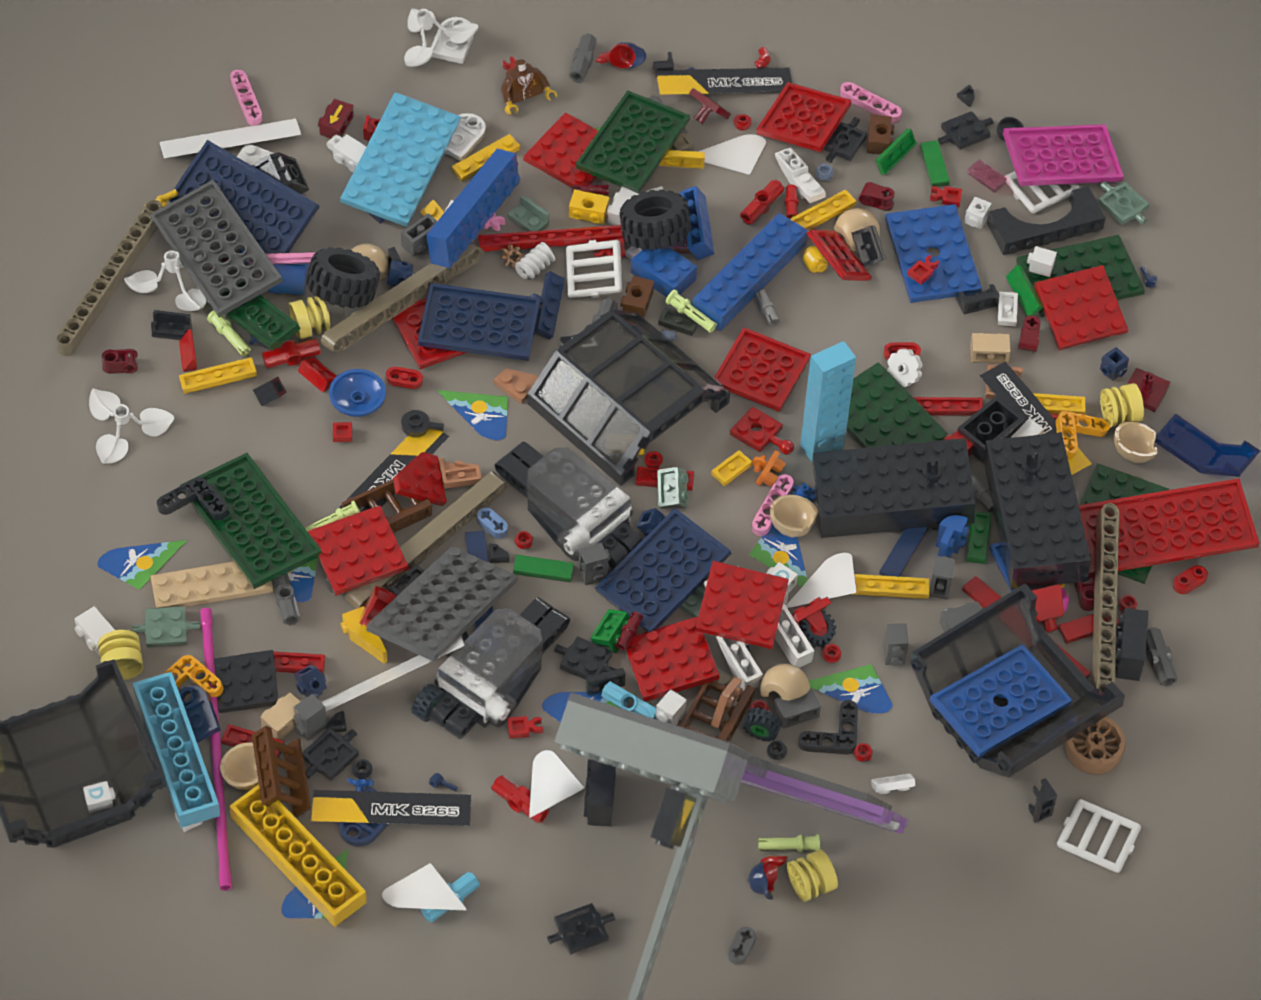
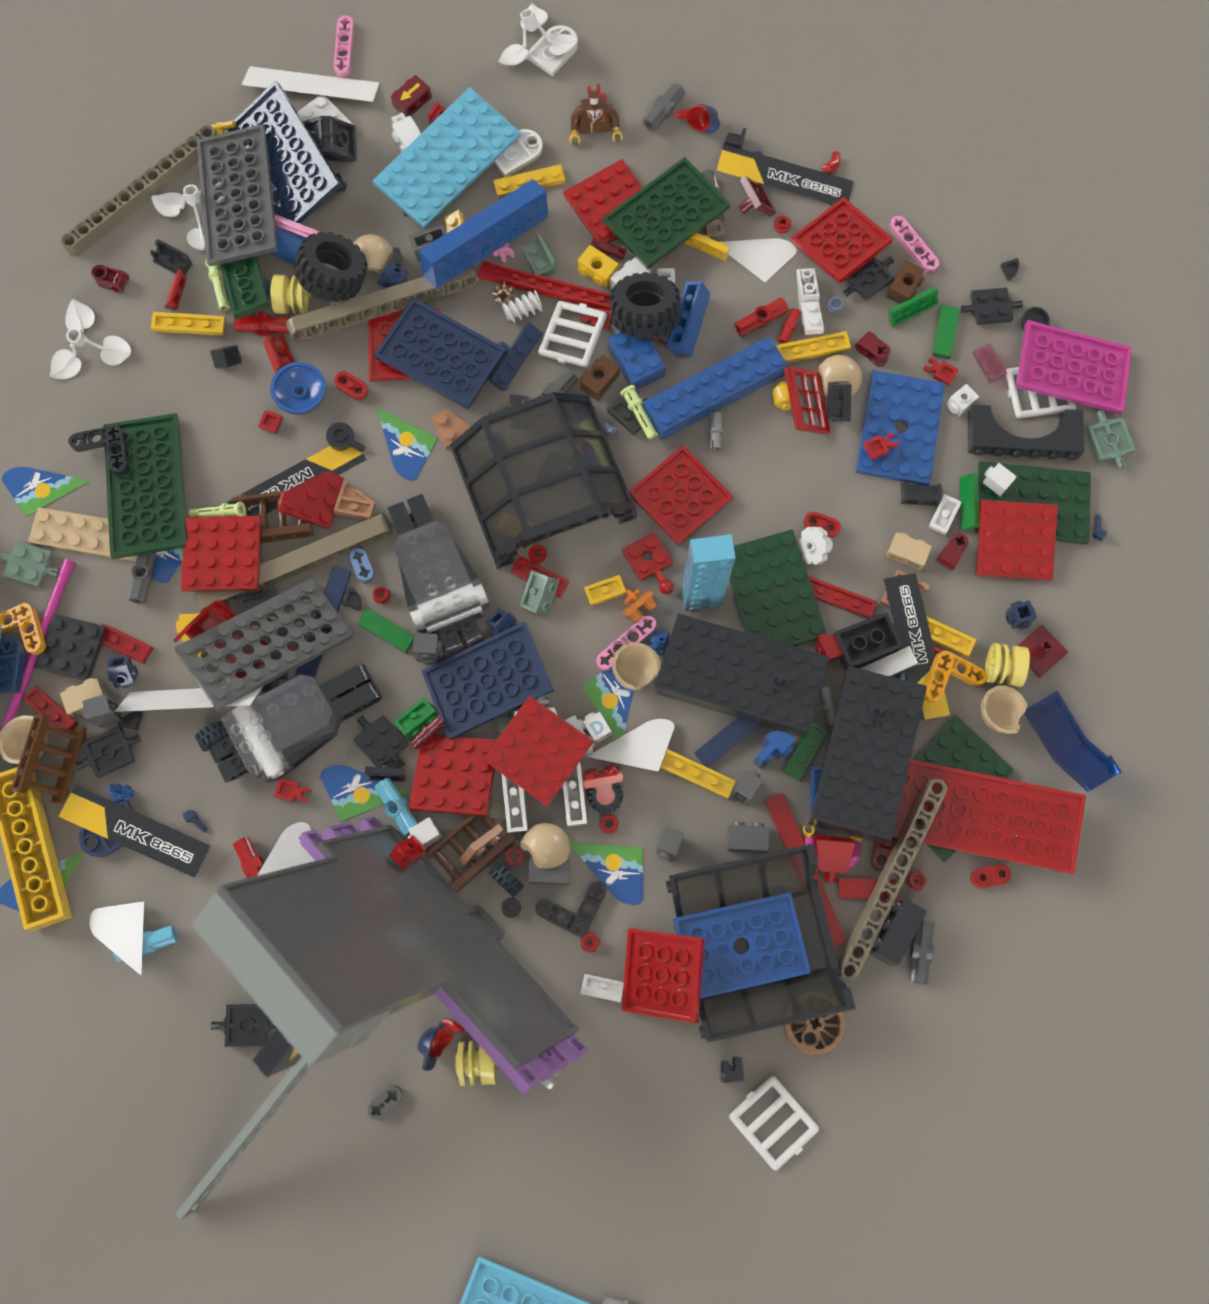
camera: 25 degrees right, 20 degrees up
(362, 764) = (125, 777): black plate -> none
(669, 716) = (407, 852): none -> red brick
(943, 744) = (663, 975): none -> red plate

